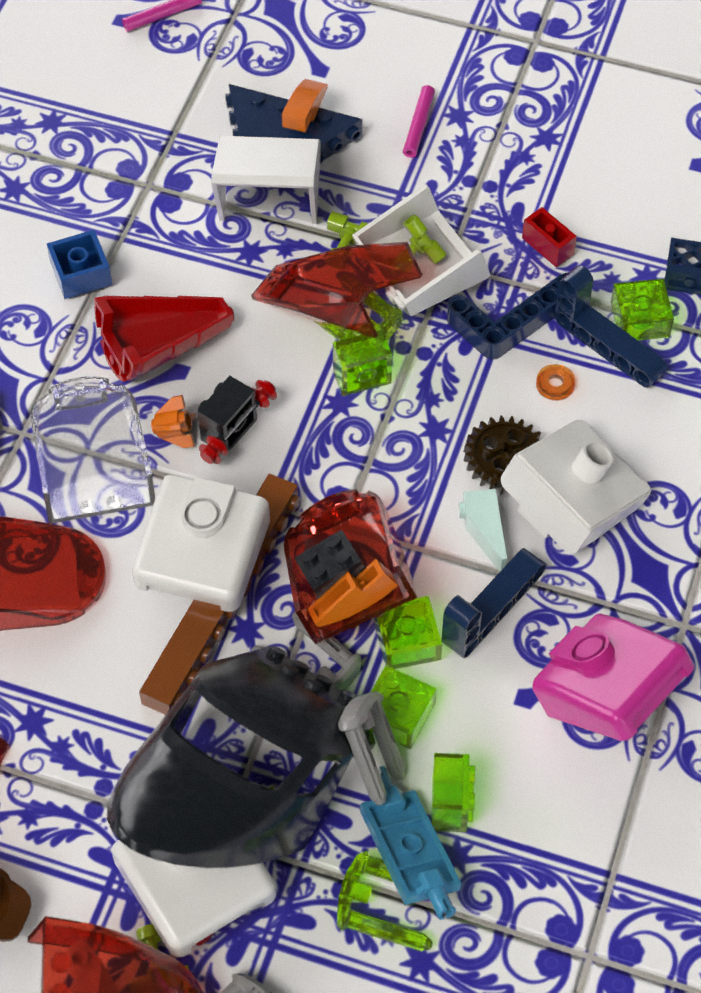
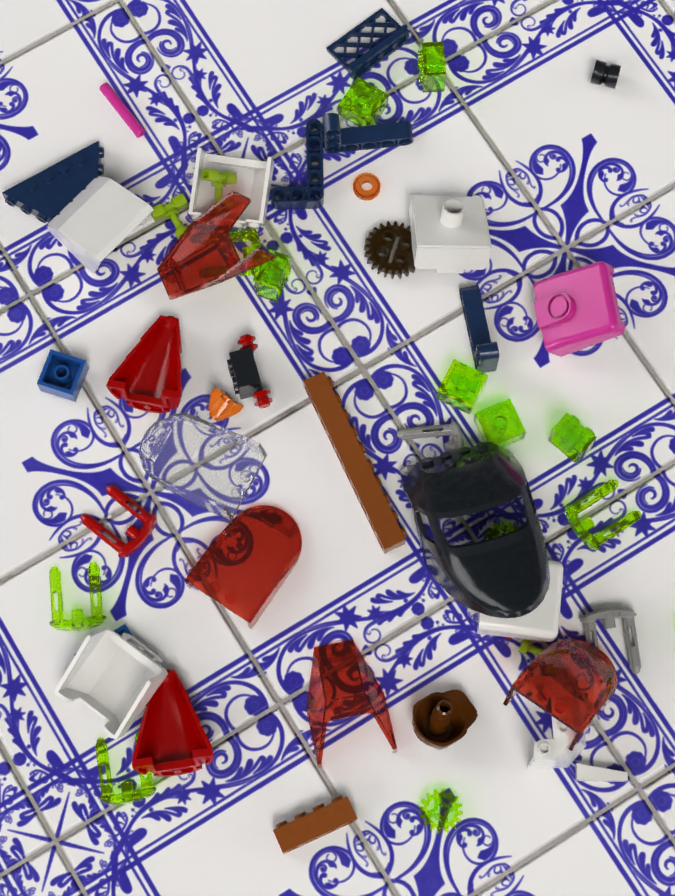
camera: 50 degrees left, 15 degrees up
(201, 541) = (324, 449): white piece -> none
(303, 105) = (65, 163): orange slope -> none
(329, 562) = (398, 394): black brick -> none
(353, 594) = (426, 397): orange slope -> none
(360, 715) = (519, 454): light grey piece -> none
(371, 535) = (396, 384): clear red windscreen -> none
(411, 848) = (583, 481): dark azure plate -> none
(484, 523) = (426, 295): light aqua slope -> none
(549, 237) = (273, 110): red brick -> none

